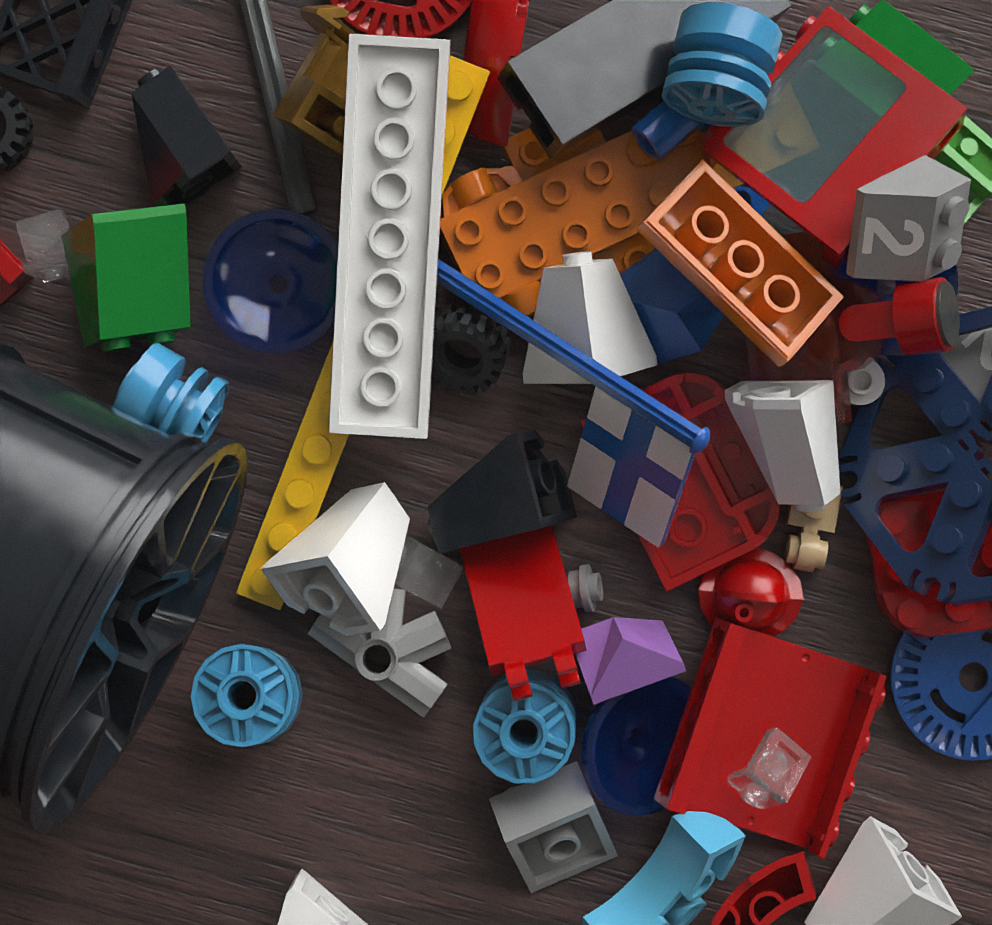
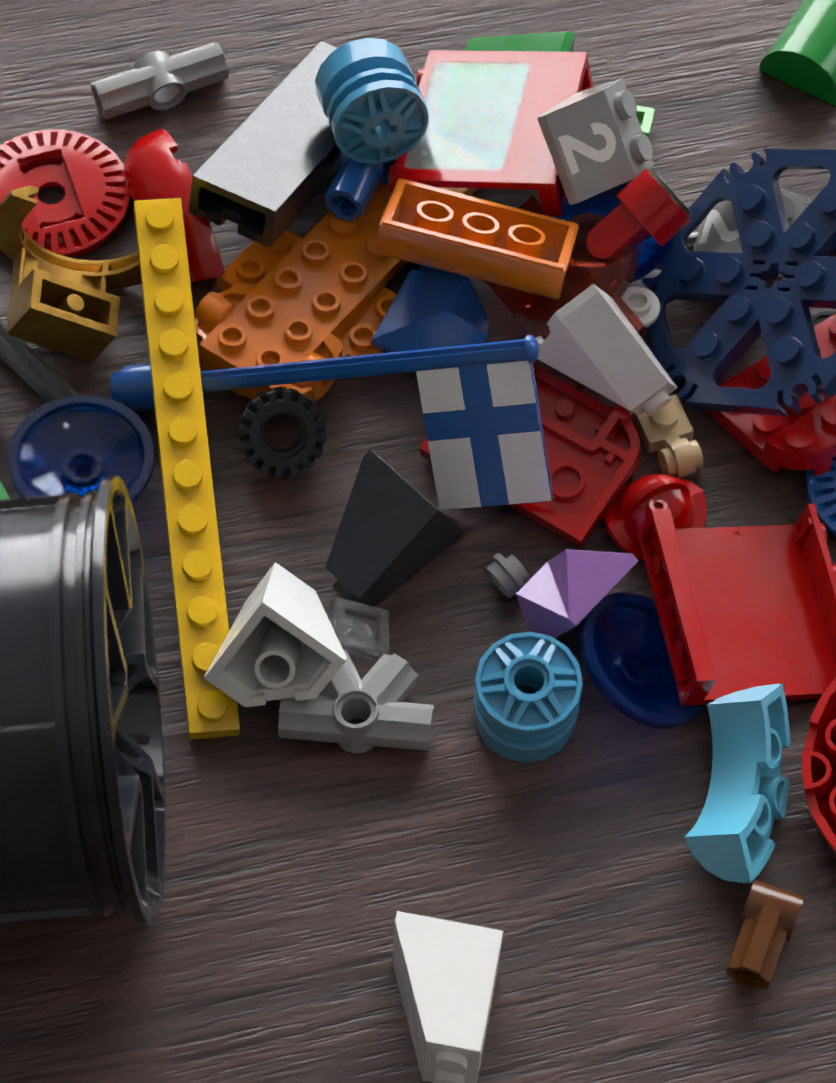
camera: 30 degrees left, 30 degrees down
(218, 701) = (253, 799): dark azure wheel -> none
(389, 235) = (170, 353): white plate -> none
(524, 607) = (464, 597): red tile -> none
(553, 827) = (609, 781): light grey slope -> none
(592, 312) = (363, 324): white slope -> none
(771, 771) = (769, 630): clear bracket -> none

